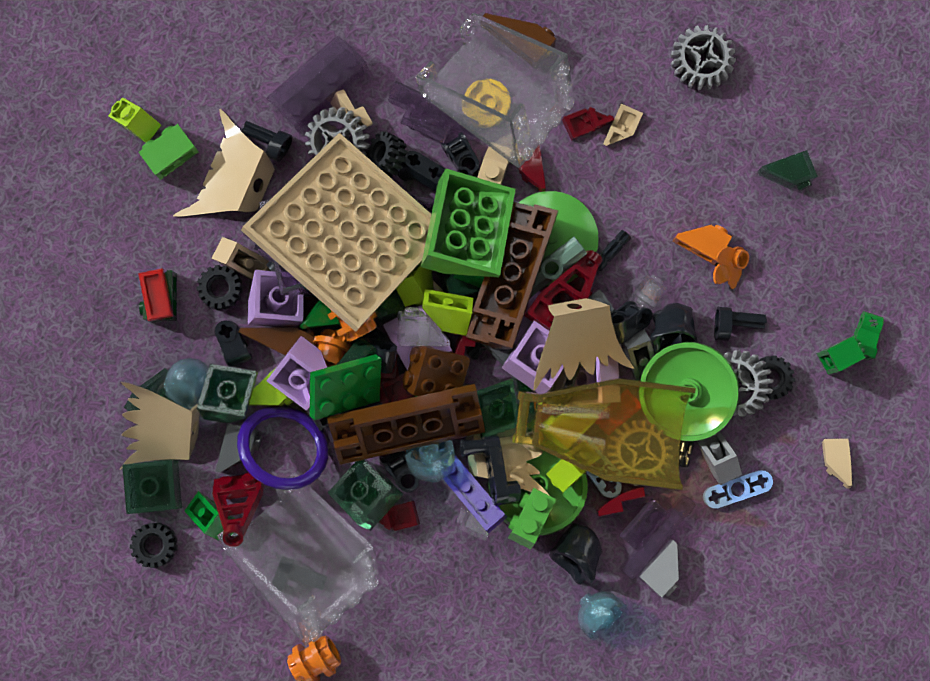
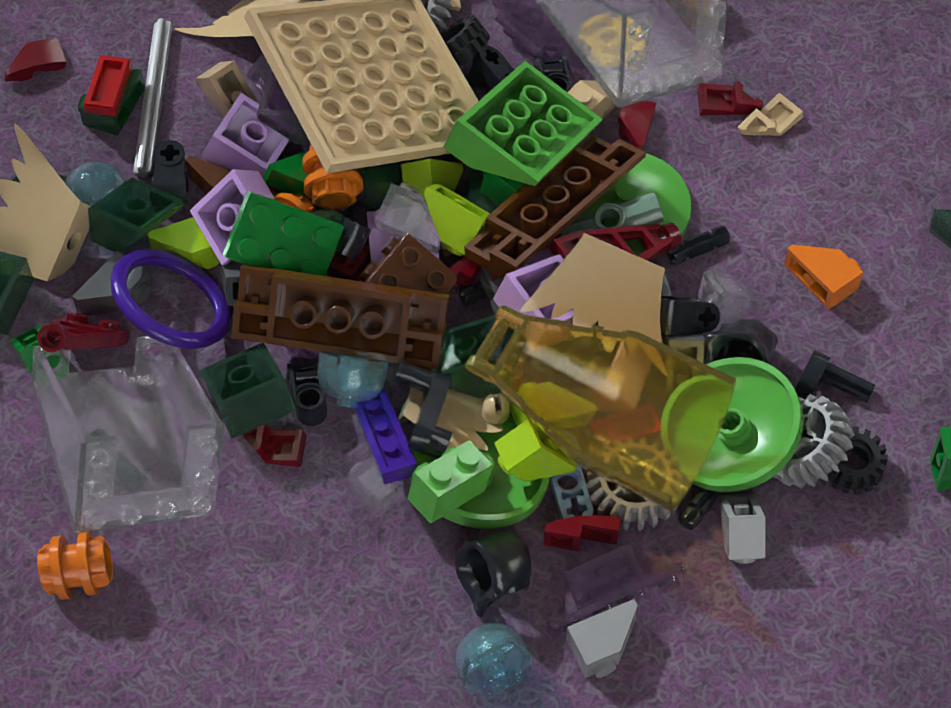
camera: 20 degrees right, 25 degrees down
(88, 282) = (36, 56): none -> dark red slope
(187, 281) = (153, 98): none -> light grey axle
(207, 280) = (186, 100): black tyre -> none
(694, 53) = (905, 86): light grey gear -> none
(730, 265) = (848, 308): orange plate -> none
(756, 489) = (763, 571): light blue beam -> none
(838, 459) = (910, 596): tan slope -> none

